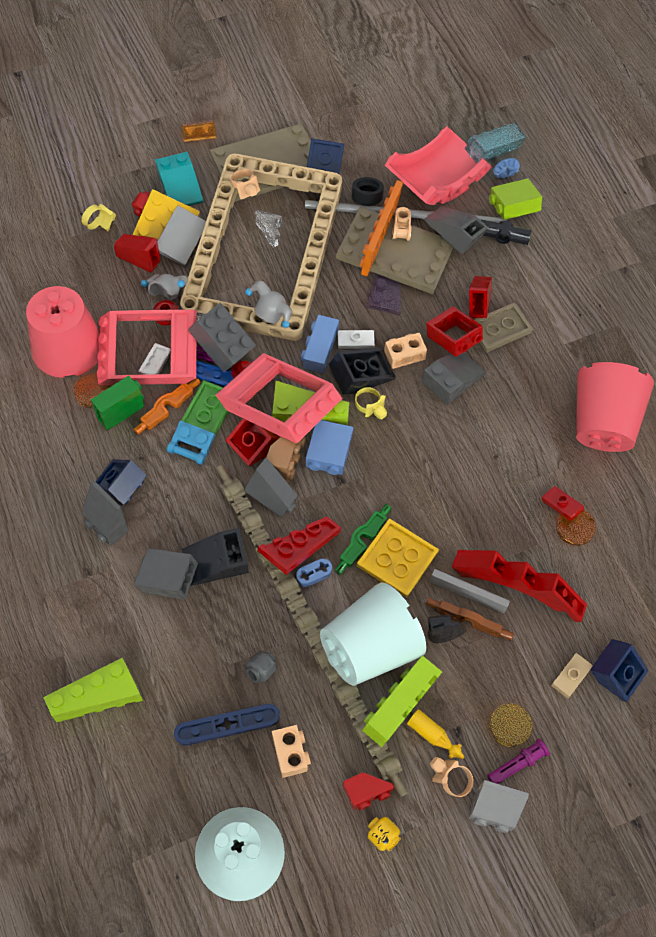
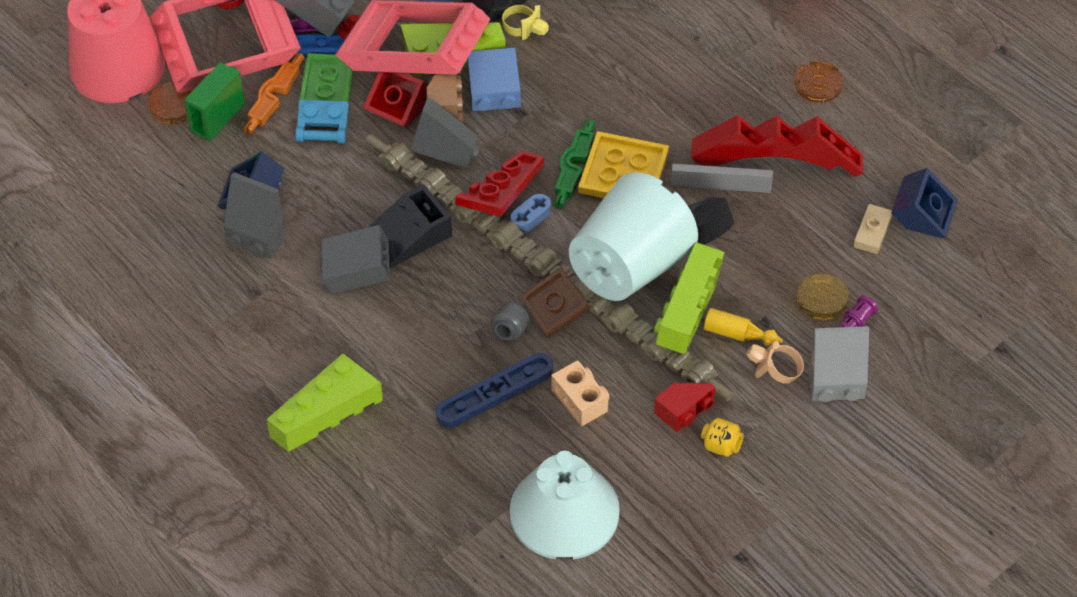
camera: 15 degrees left, 10 degrees down
(155, 360) = (238, 45): white plate -> none
(300, 662) = (554, 302): none -> reddish brown tile
(478, 621) = (746, 205): dark orange piece -> none
(562, 503) = (794, 60): red plate -> none

